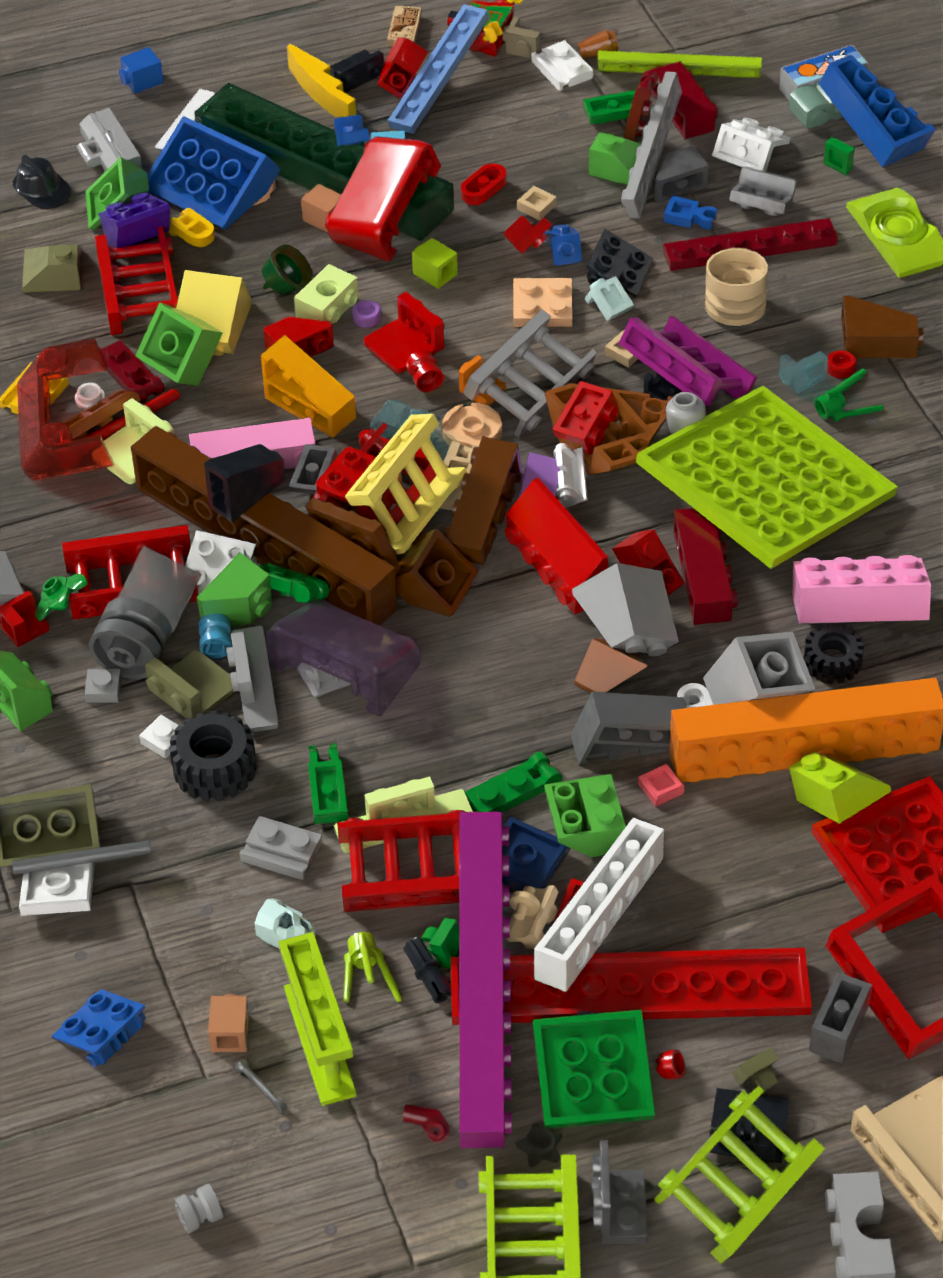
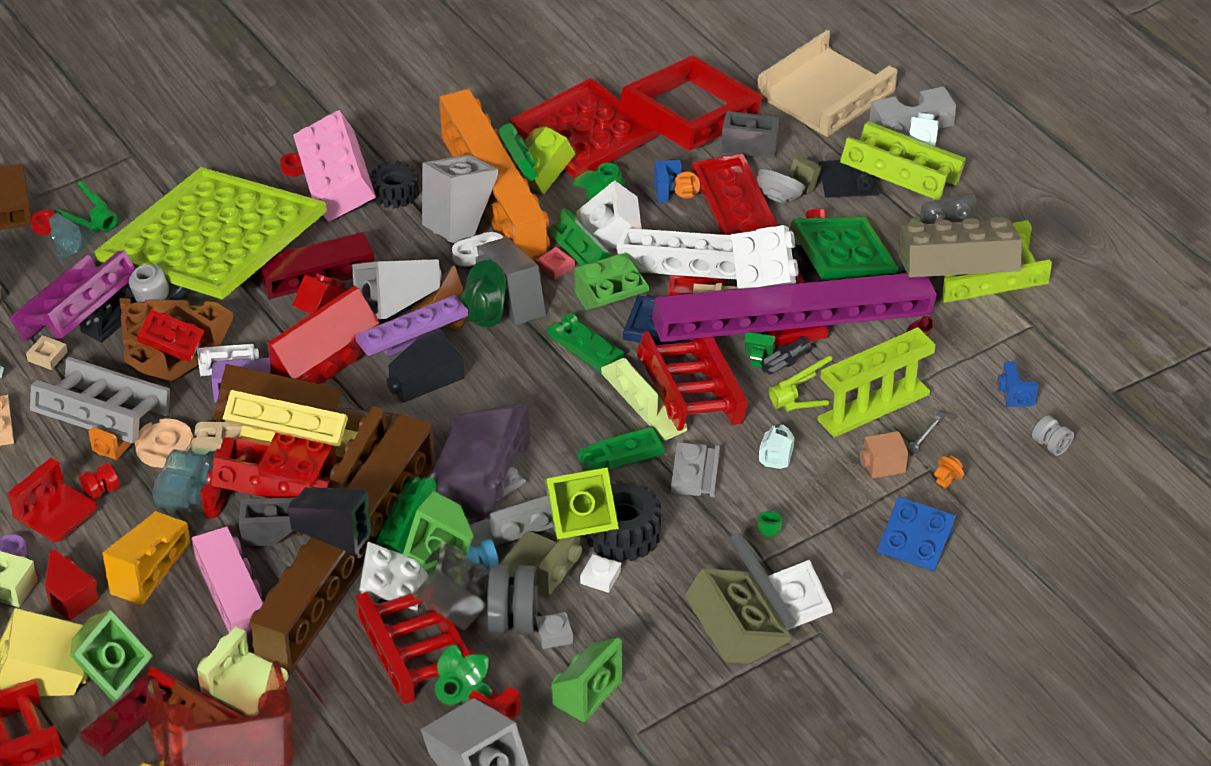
camera: 105 degrees left, 5 degrees down
(162, 886) = (769, 523): none -> green hinge
(183, 1082) = (948, 469): none -> orange plate
(214, 693) = (581, 503): none -> lime slope
(294, 1189) = (1016, 392): none -> blue bracket
(514, 635) = (425, 366): none -> black slope
(521, 1170) = (959, 247): none -> dark tan brick
(532, 931) = (764, 257): none -> white plate
(560, 618) = (403, 331): none -> medium lavender bracket
(581, 679) = (484, 293): none -> dark green piece
(683, 803) = (577, 239): none -> green plate
(714, 845) = (610, 213): none -> white slope
(744, 1029) = (778, 186): none -> light grey piece
(766, 934) = (686, 184): none -> orange plate
(780, 910) = (664, 177): none -> blue bracket
(790, 856) = (598, 180): none -> green plate
(807, 1225) = (924, 128): none -> light aqua bracket
(813, 739) = (519, 151): none -> green hinge

